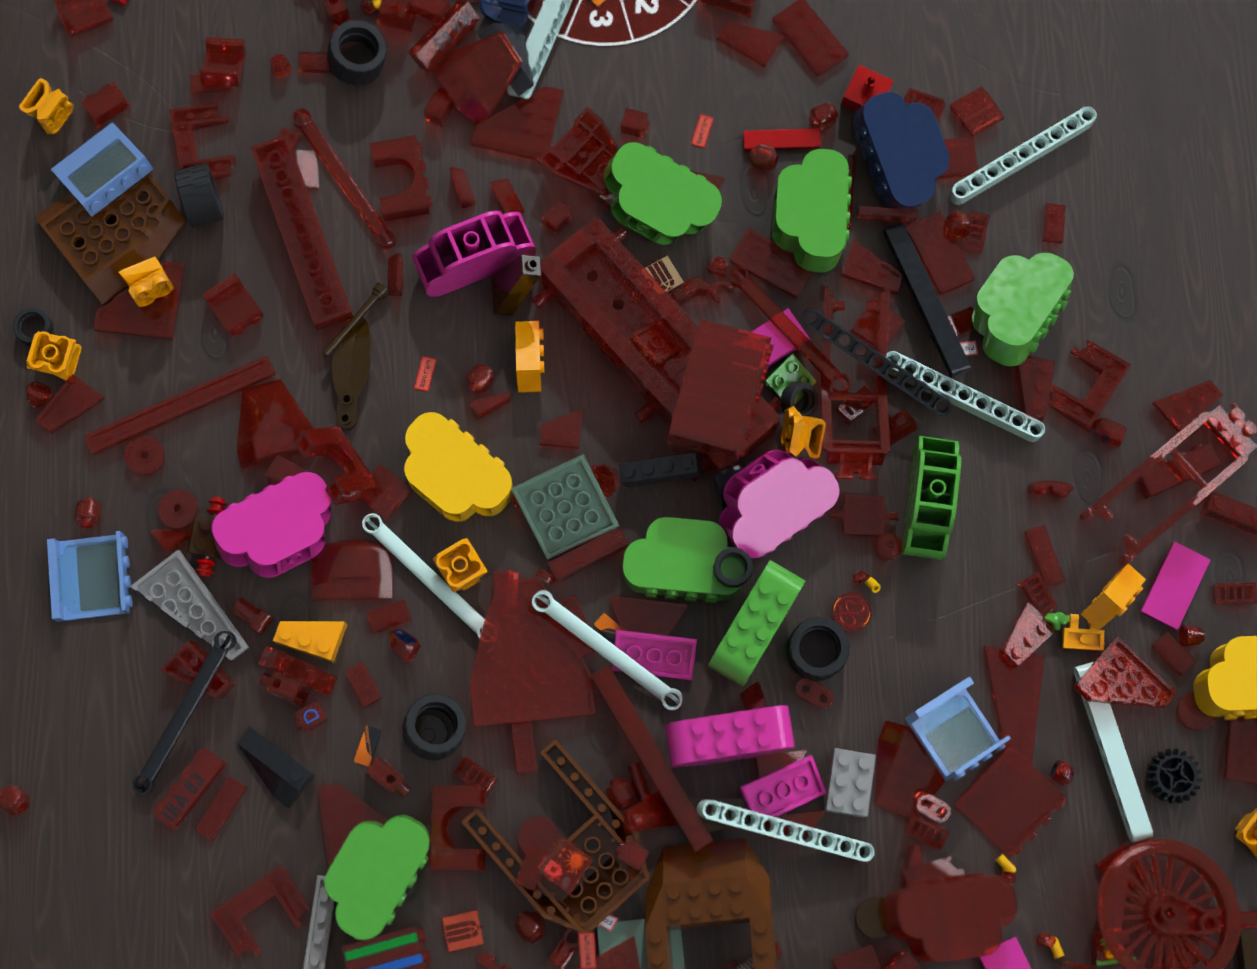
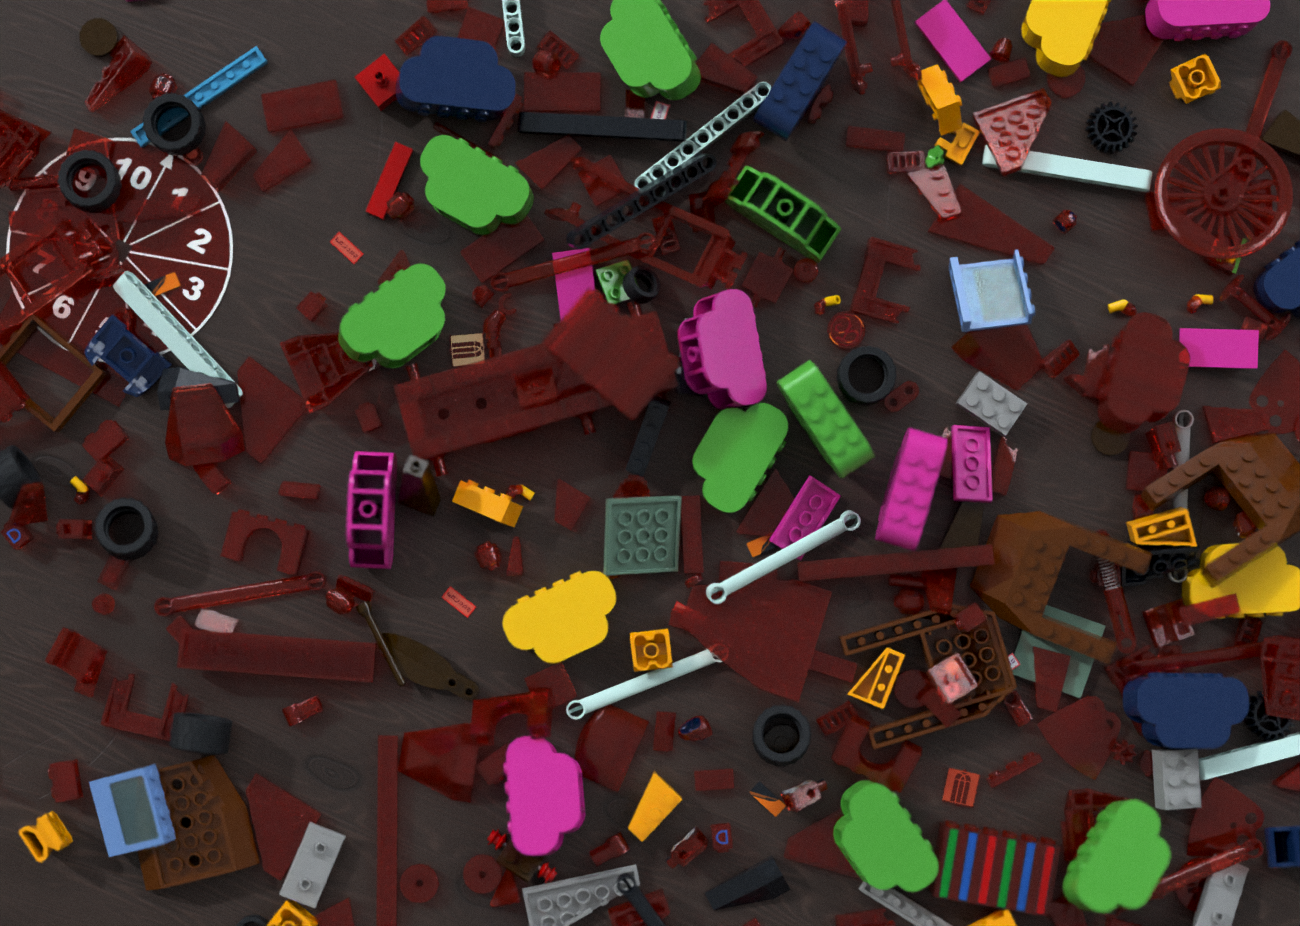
camera: 65 degrees left, 10 degrees up
(120, 350) = (312, 865): none -> light grey container
(146, 281) = (261, 814): light orange piece -> none
(233, 305) = (316, 745): clear red panel -> none
(257, 275) = (299, 711): none -> clear red piece
(297, 669) = (676, 832): clear red arch -> none
(377, 266) = (340, 600): none -> clear red head
(444, 35) = (145, 441): clear red brick -> none
(506, 196) = (328, 454): clear red slope -> none
(530, 927) = (985, 730): clear red head -> none
(532, 798) = (879, 680): none -> light orange wedge
(555, 381) = (520, 489): none -> arm
(587, 950) = (1029, 691): clear red sticker -> none
(735, 582) = (782, 416): black tyre -> none
(753, 697) = (884, 451): clear red slope -> none
(795, 830) = (1001, 483): light aqua beam -> none
(801, 433) = (674, 297): light orange piece -> none
(823, 115) = (386, 132): clear red head -> none
(931, 805) = (1040, 346): clear red plate -> none
(937, 607) = (876, 255): none -> clear red wedge
(967, 435) = (743, 146): none -> clear red wedge
(1010, 801) = (1068, 275): clear red panel -> none
(1061, 454) = (800, 81): none -> dark blue brick

